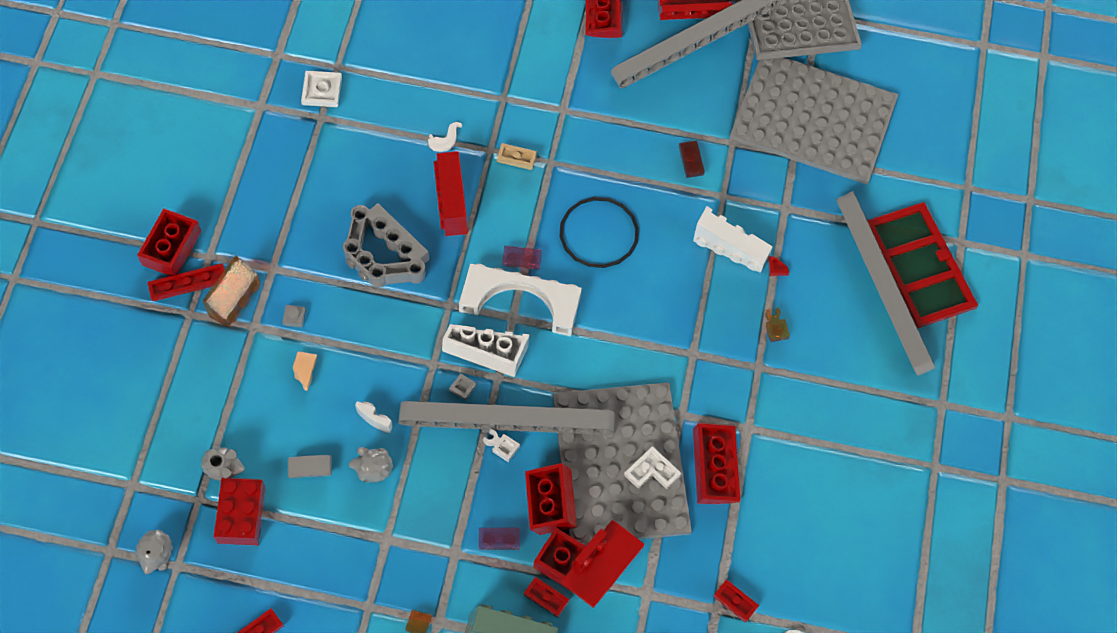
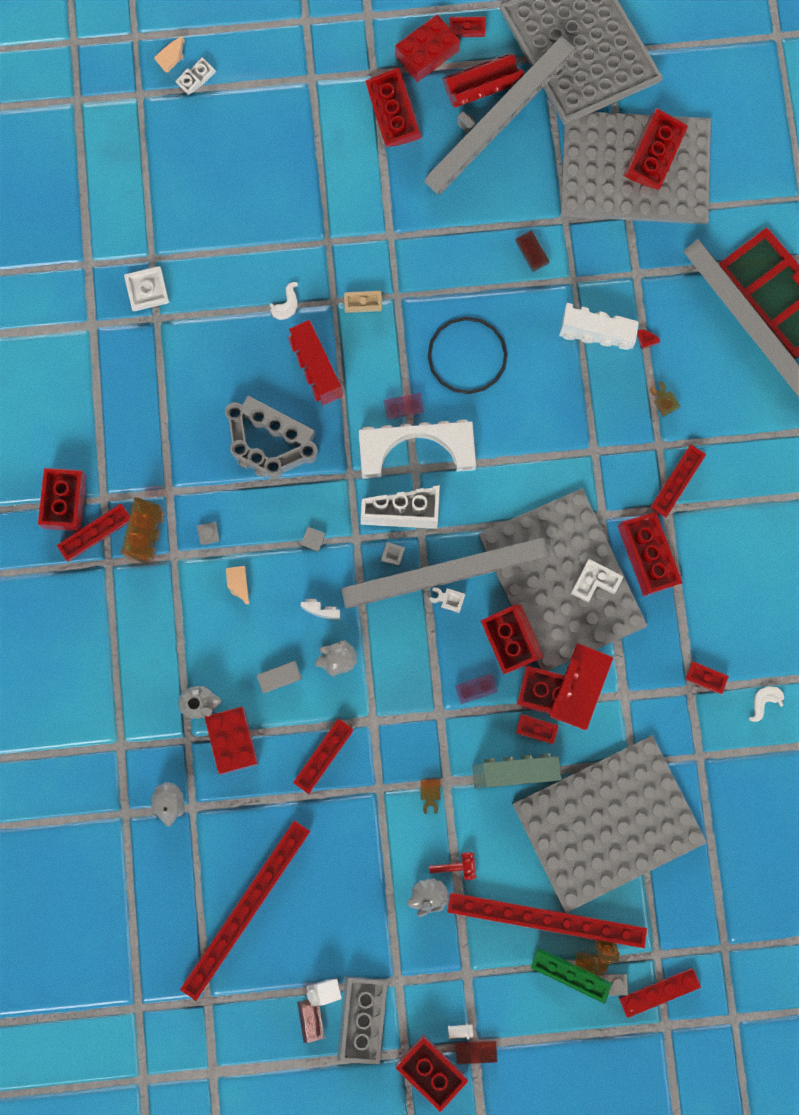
camera: 15 degrees left, 15 degrees up
(324, 556) = (323, 756): none -> red plate
(391, 351) = (313, 539): none -> light grey tile
(665, 32) = (465, 122): none -> light grey plate
(766, 404) = (678, 481): none -> red plate
(836, 104) = (655, 150): none -> red slope

